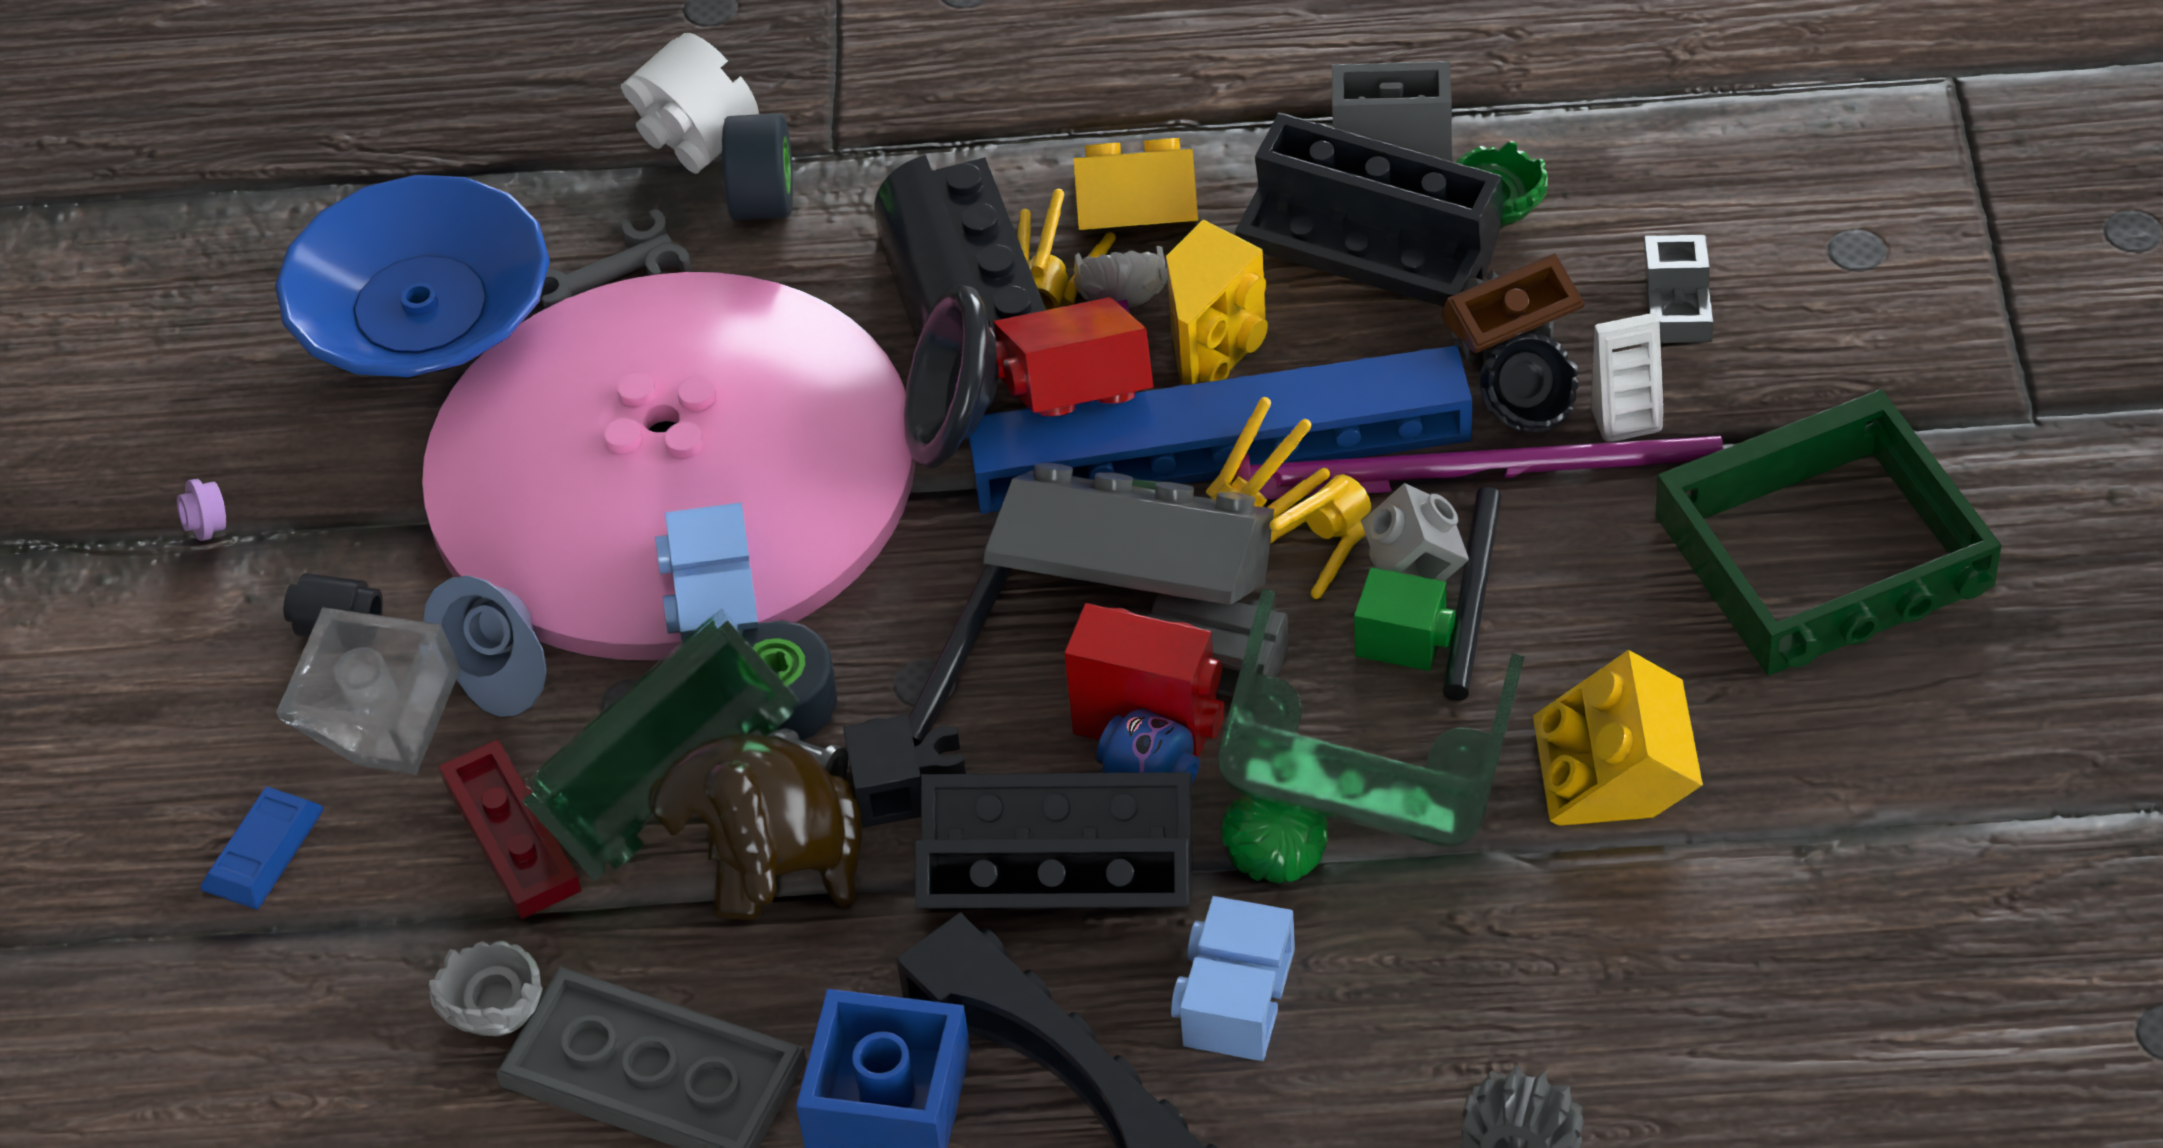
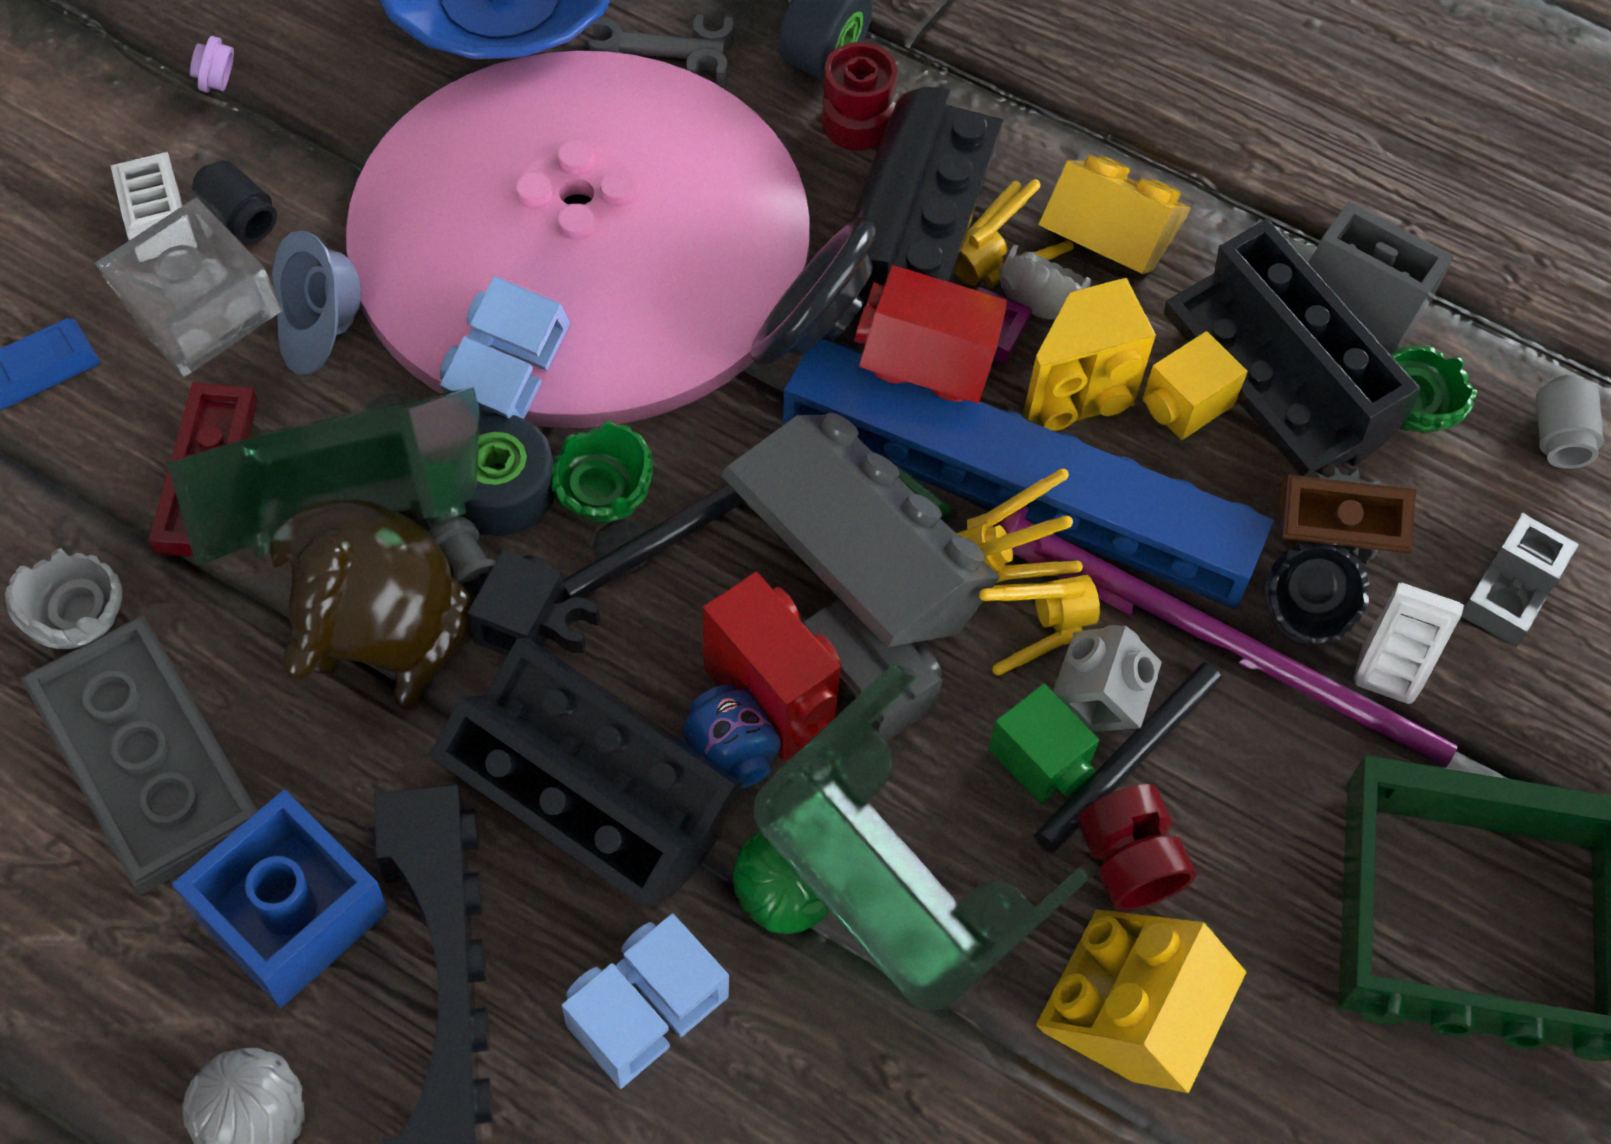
camera: 25 degrees right, 10 degrees up
(262, 683) = (142, 174): none -> white slope
(834, 210) = (858, 95): none -> dark red wheel
(870, 627) = (602, 473): none -> green hair
(1310, 283) = (1193, 385): none -> yellow brick
(1553, 646) = (1139, 856): none -> dark red wheel
(1631, 145) = (1569, 422): none -> light grey brick

